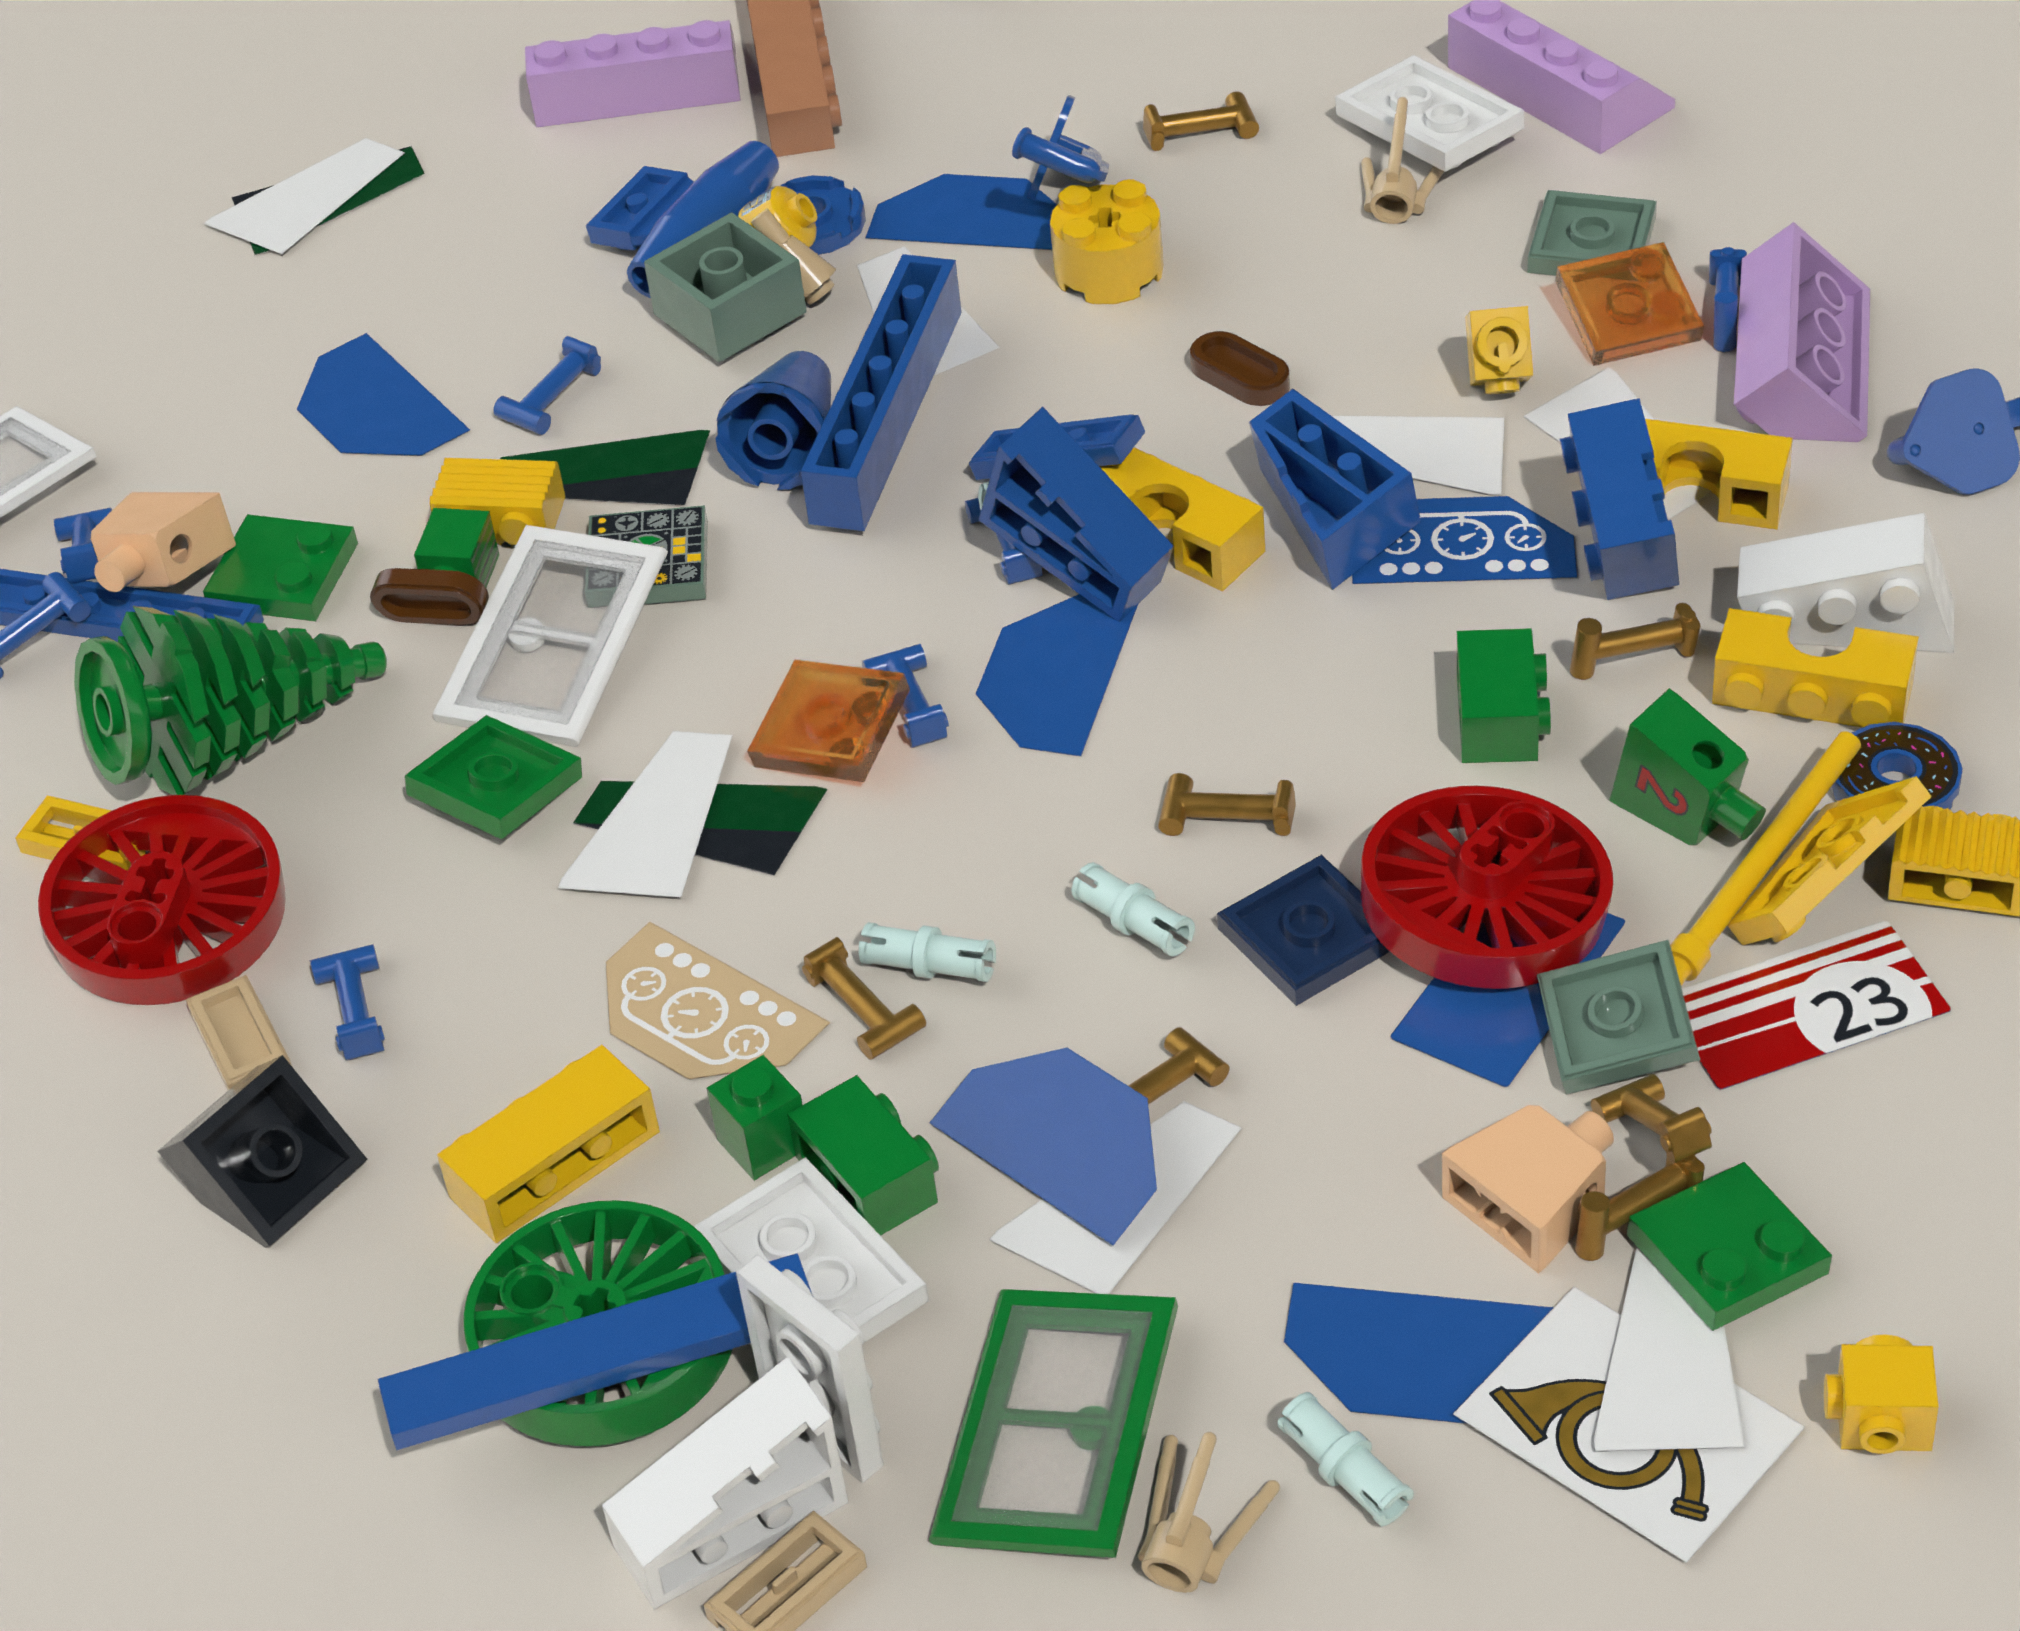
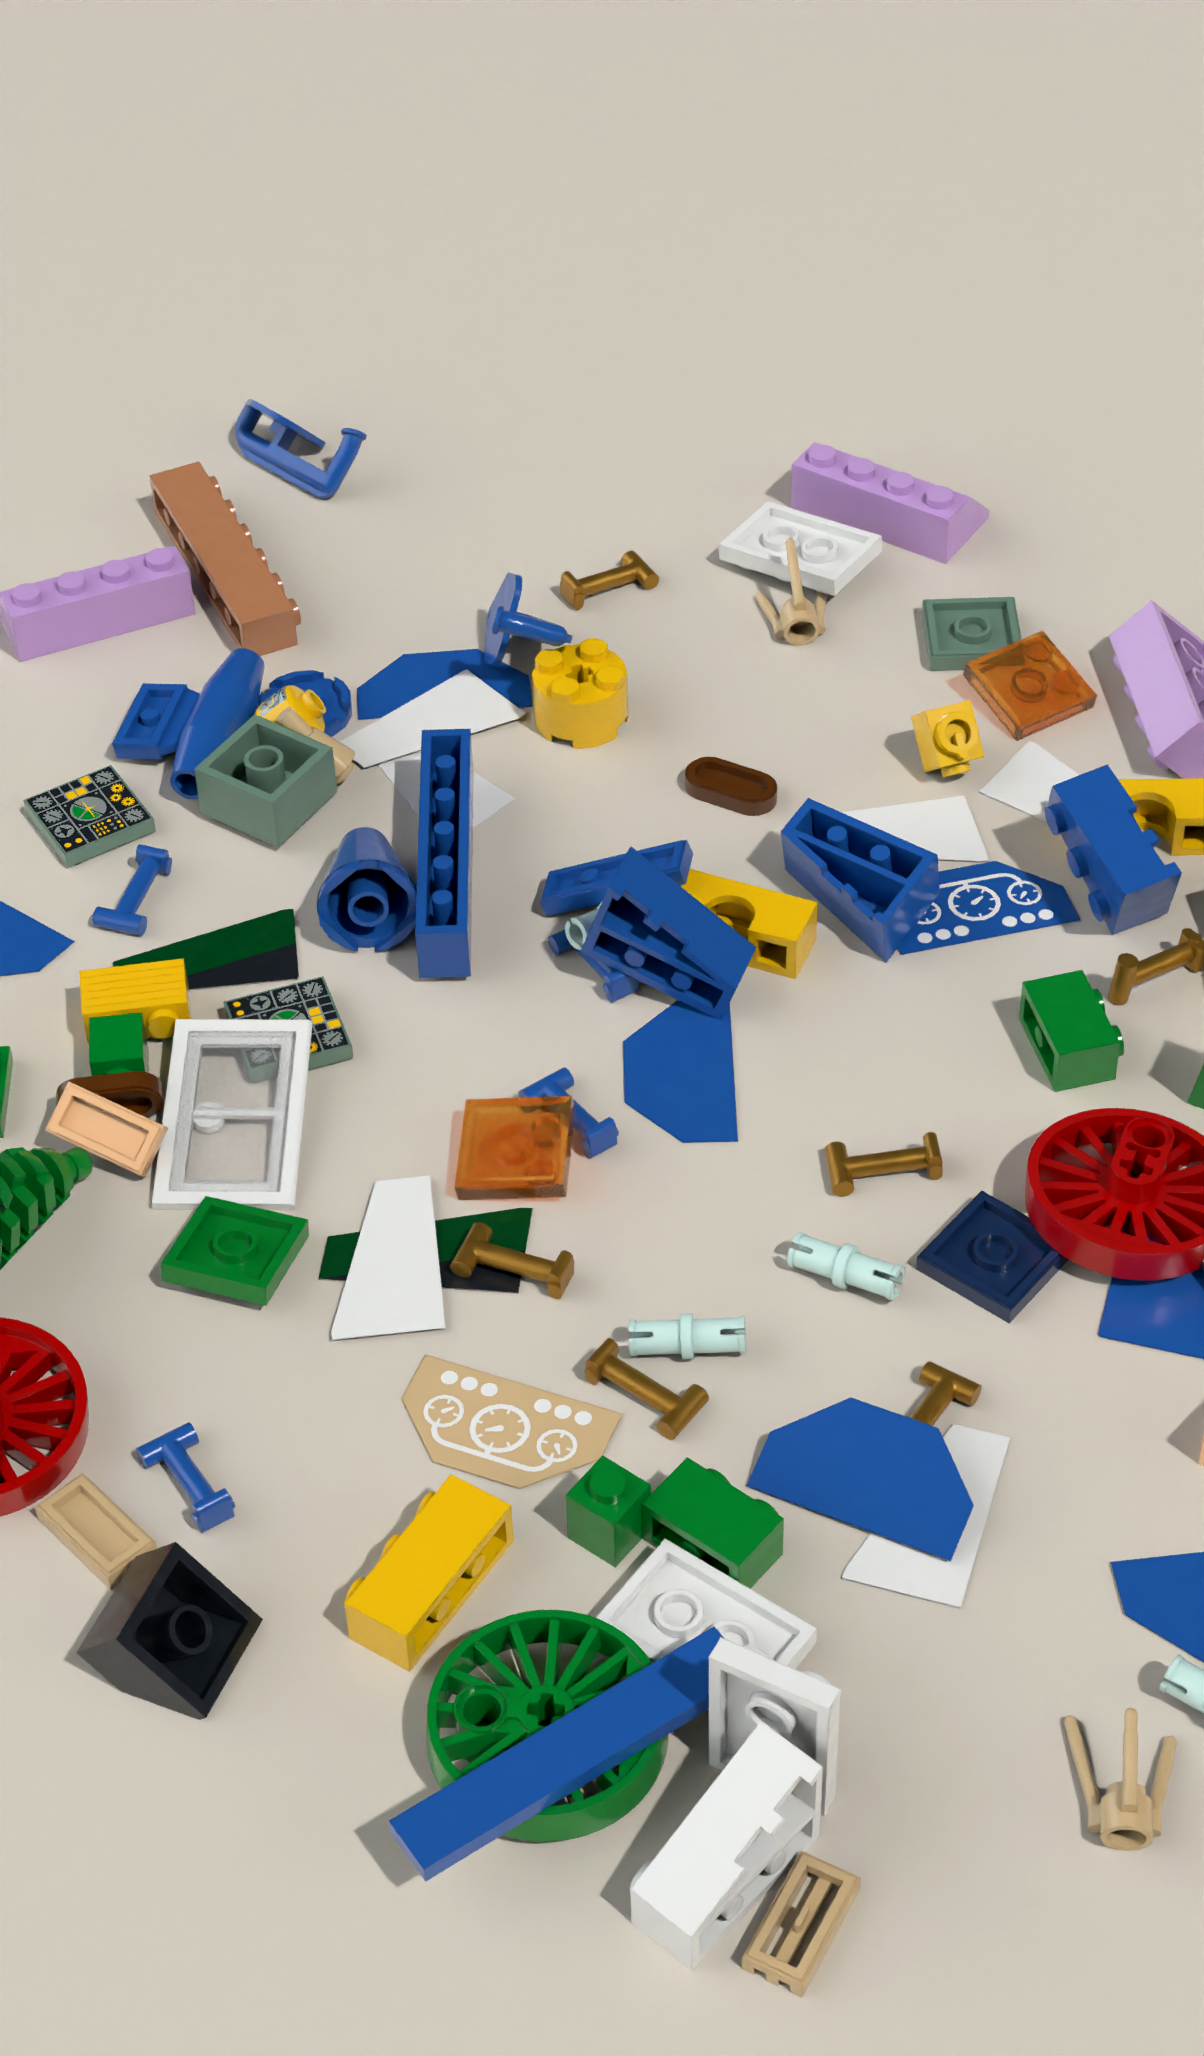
camera: 20 degrees left, 0 degrees up
(409, 627) = (106, 1129): none -> light nougat tile
(536, 300) = (89, 816): none -> tile
(746, 820) = (479, 1250): none -> pearl gold piece
(975, 239) = (454, 704): none -> white sticker
(1055, 1423) = (970, 1727): clear door -> none
(1726, 276) = (1095, 647): blue piece -> none

